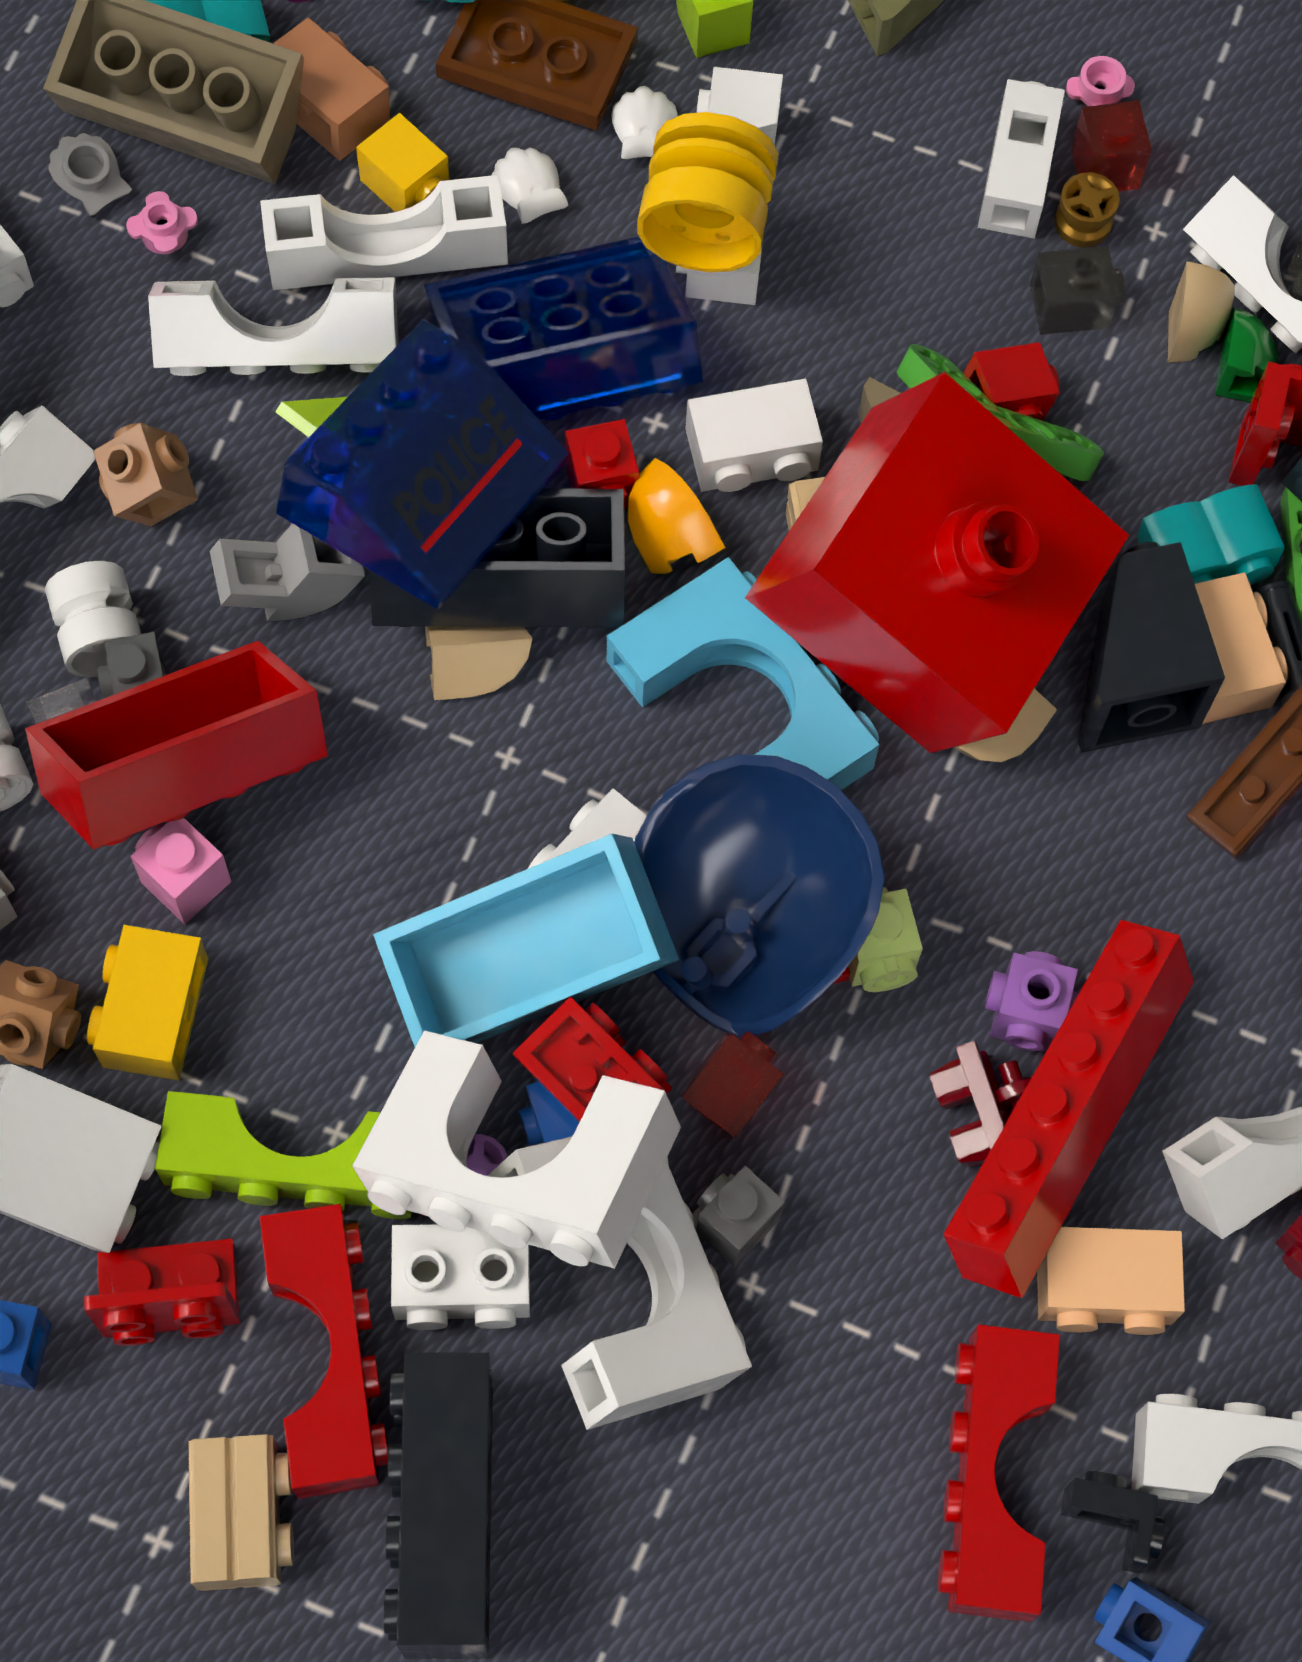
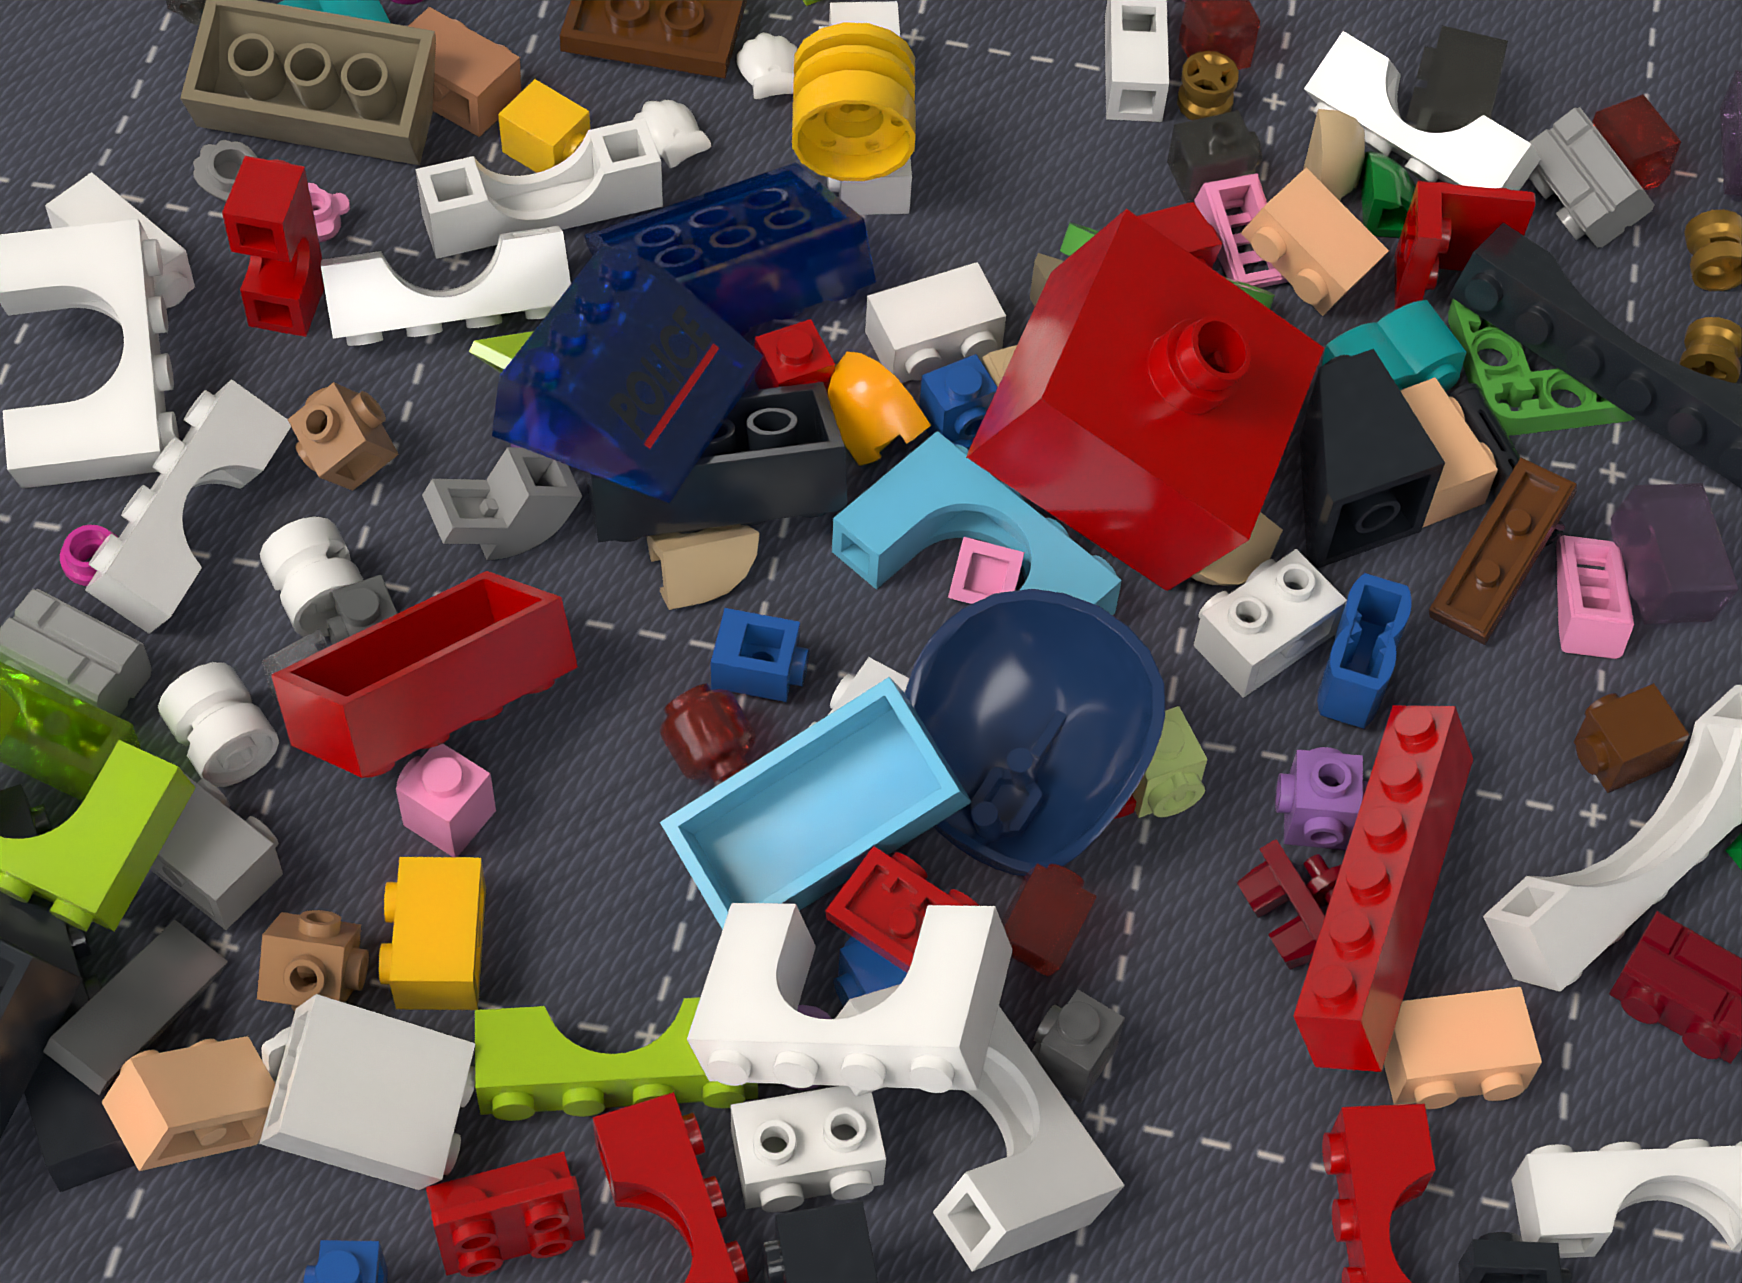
camera: 10 degrees left, 10 degrees down
(108, 249) = (275, 223): none -> red arch
(444, 839) = (707, 733): none -> clear red head
(502, 748) = (758, 655): none -> blue brick
(749, 712) = (984, 570): none -> bright pink plate
(755, 525) = (957, 399): none -> blue brick
(1020, 805) = (1268, 621): none -> white brick
(1102, 335) = (1232, 193): none -> bright pink slope
(1107, 854) = (1364, 650): none -> blue brick
(1155, 403) = (1314, 241): none -> light nougat brick

